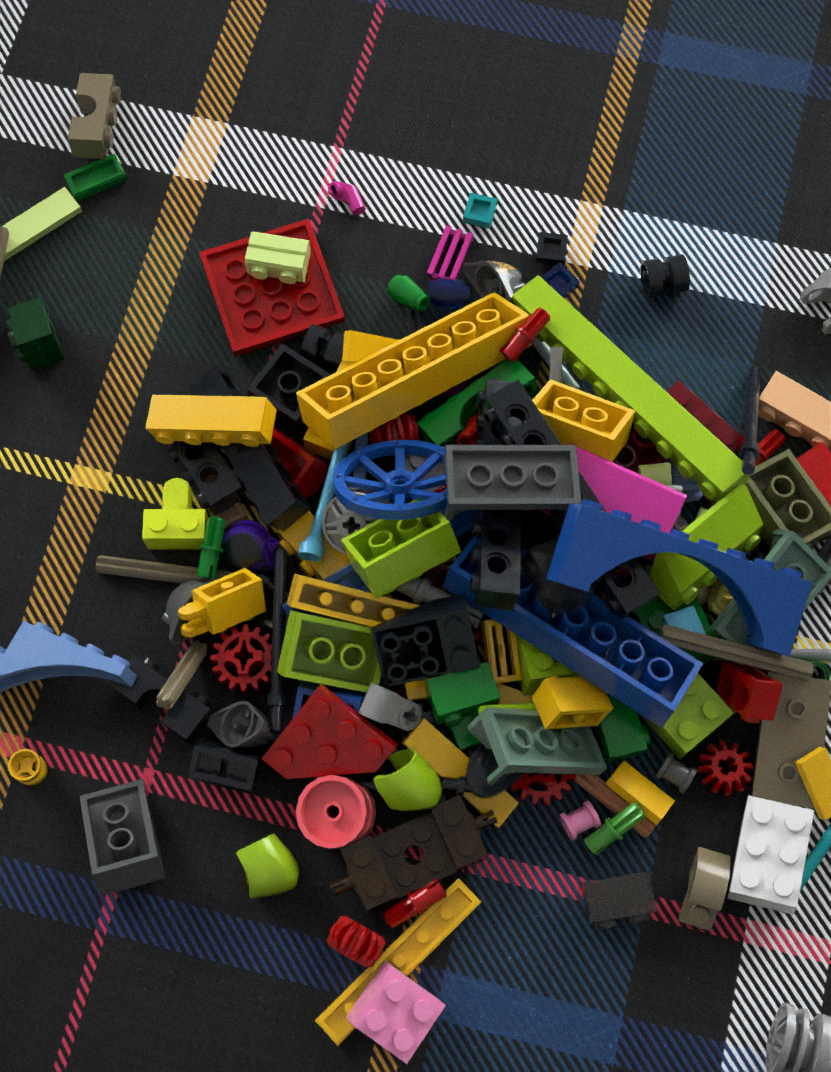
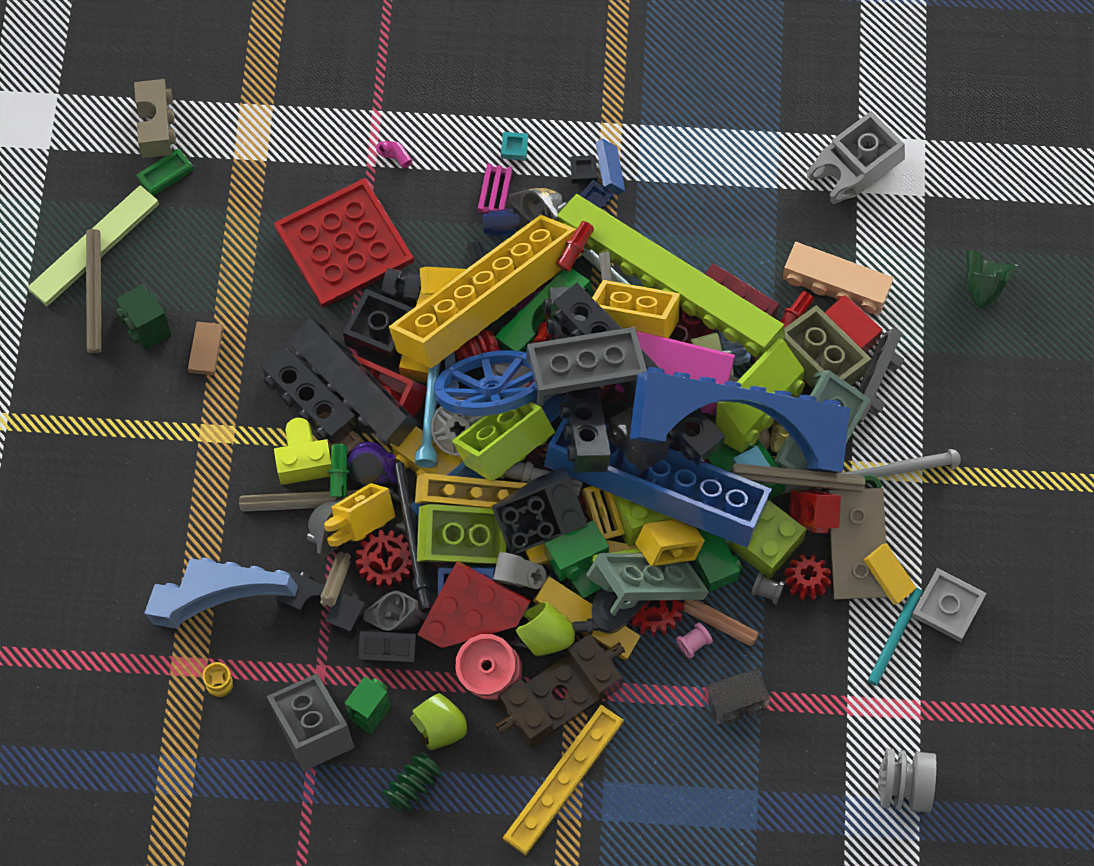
camera: 10 degrees left, 5 degrees down
(97, 380) = (205, 348): none -> medium nougat tile
(189, 831) = (368, 704): none -> green brick
(211, 419) = (319, 362): yellow brick -> none
(222, 935) = (412, 782): none -> dark green piece
(277, 257) = (345, 216): yellowish green brick -> none
(356, 941) = (525, 766): red gear -> none
(395, 1011) = (569, 814): bright pink brick -> none
(408, 293) = (464, 228): green cone -> none
(415, 903) = (569, 729): red axle -> none
(581, 250) = (610, 166): none -> blue tile
(614, 828) = (723, 641): bright green axle -> none
(637, 788) = (740, 609): yellow tile -> none
(663, 276) = (686, 176): black wheel -> none
(706, 888) = (807, 675): dark tan brick -> none
(749, 448) = (780, 308): black bar -> none
(771, 855) = (856, 637): white brick -> none

